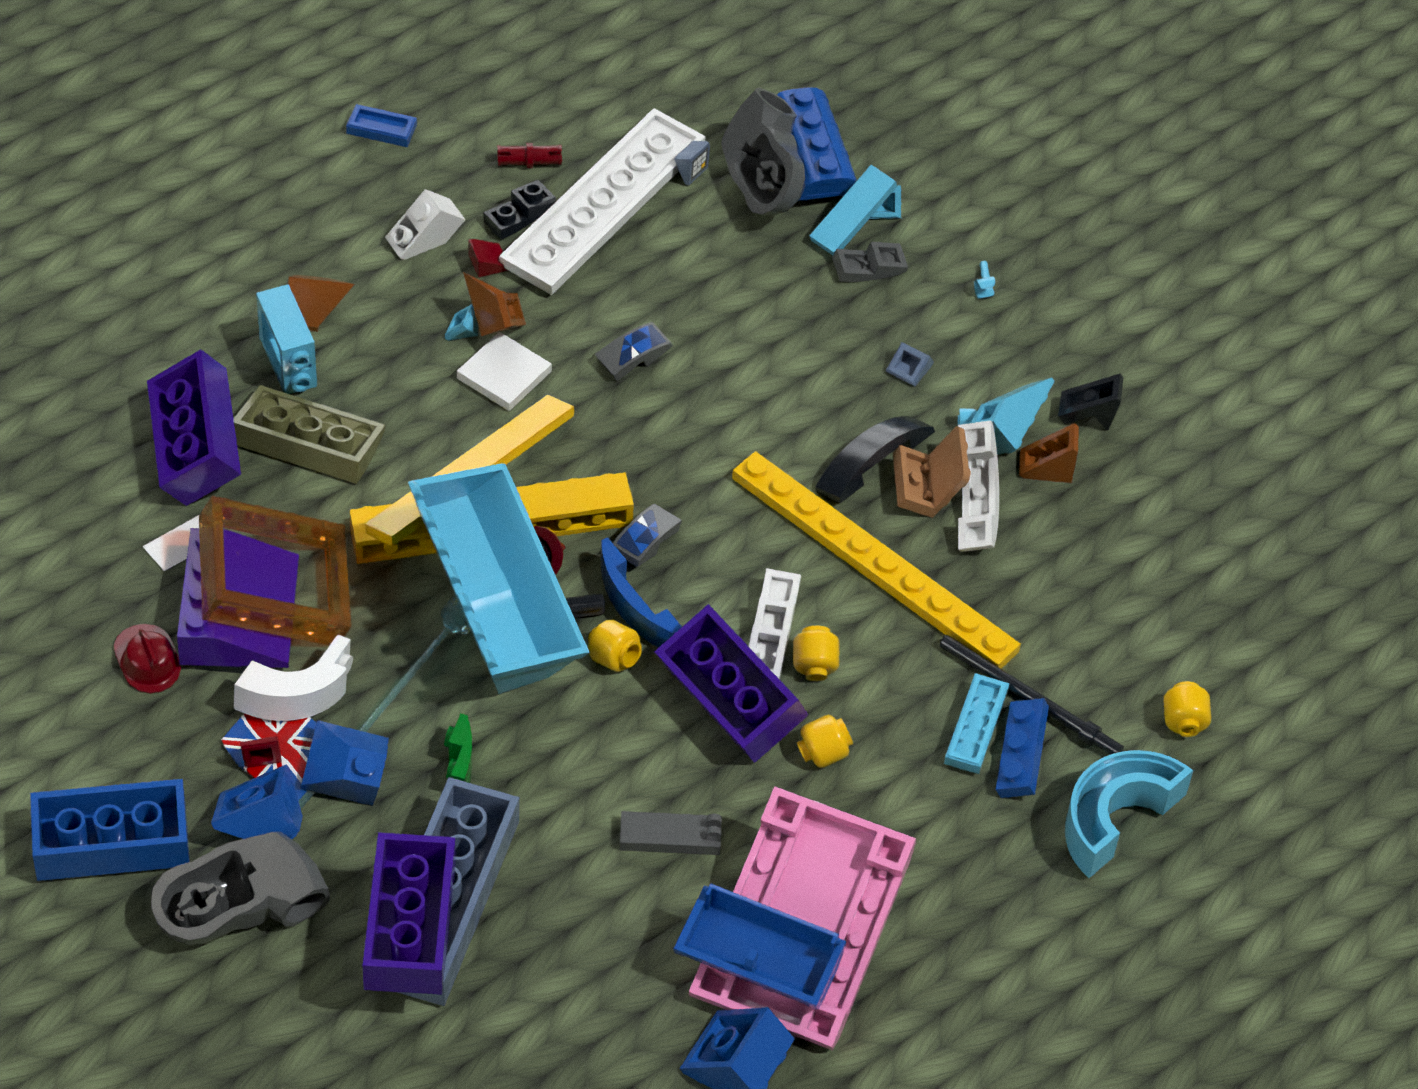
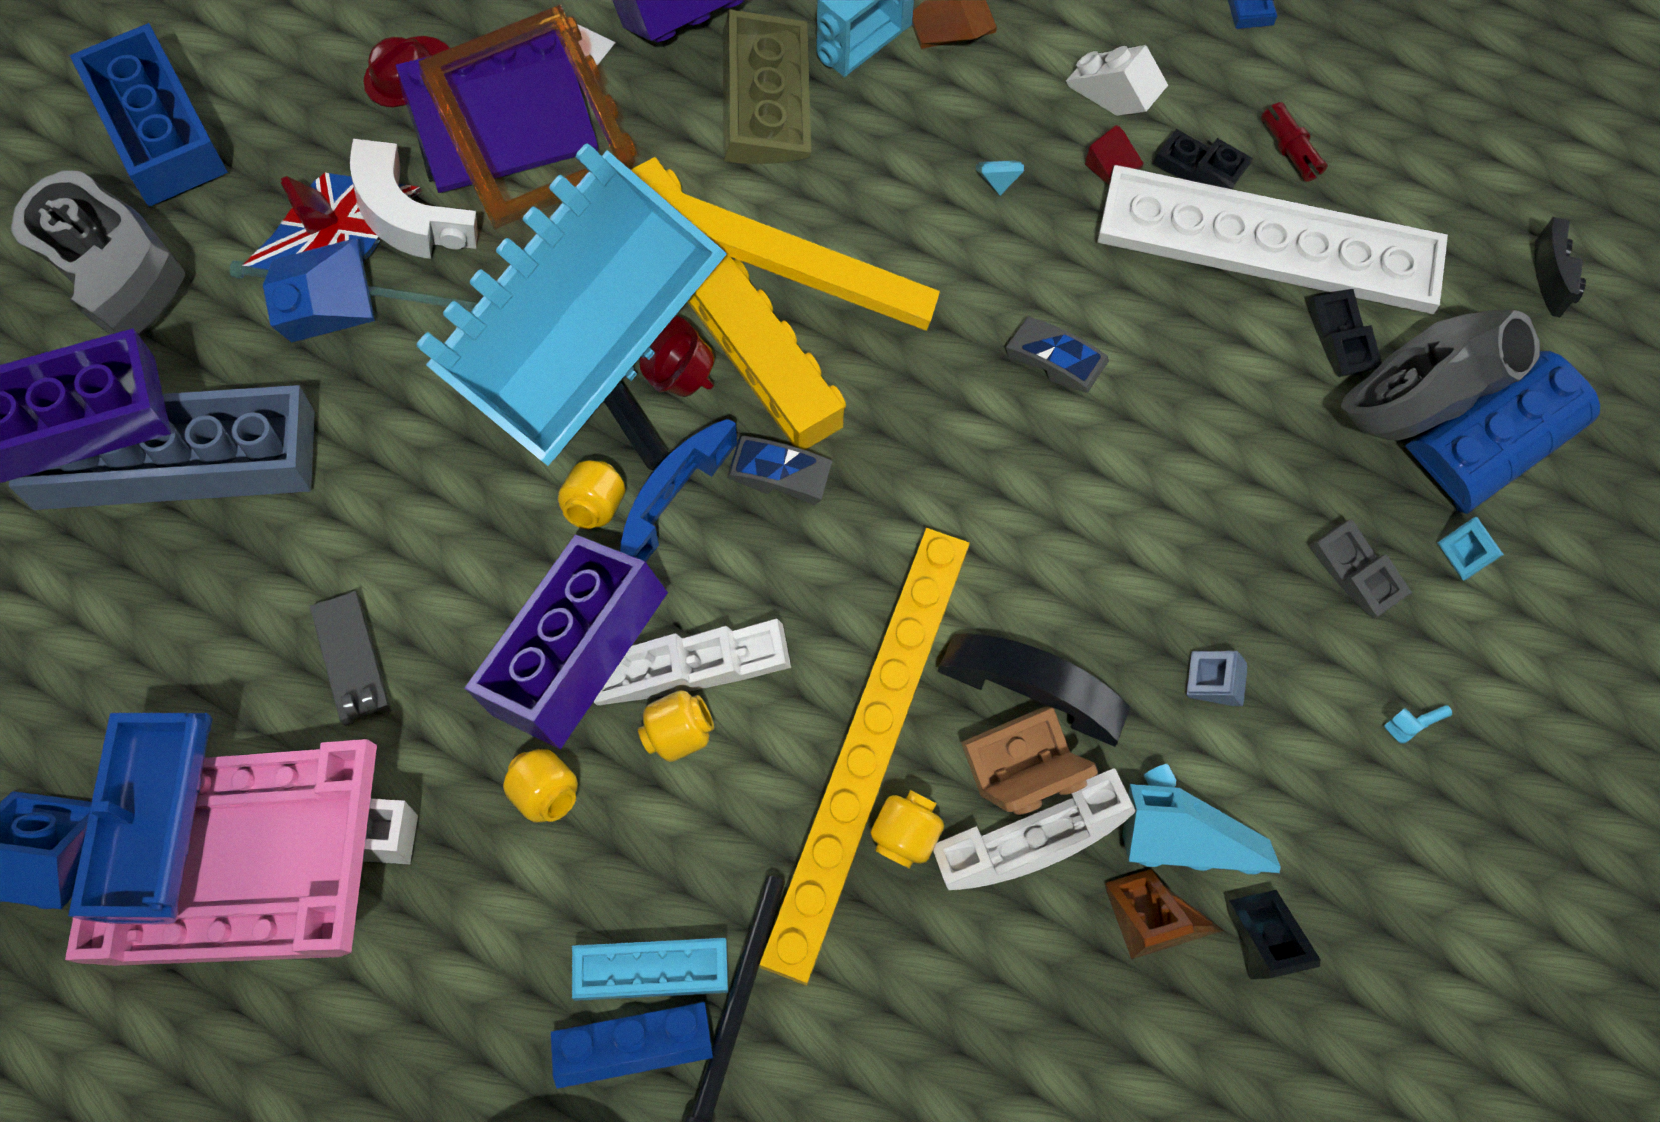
camera: 70 degrees right, 15 degrees up
(260, 806) = (218, 232): blue slope -> none
(459, 742) = (383, 395): green slope -> none
(493, 307) = (1031, 187): dark orange slope -> none
(504, 371) = (955, 237): white tile -> none
(693, 160) = (1390, 306): sand blue slope -> none
(702, 198) = (1340, 329): none -> black slope
(711, 70) = (1556, 270): none -> black slope
(853, 210) = (1425, 514): medium azure tile -> none
(944, 554) = (907, 829): none -> yellow head

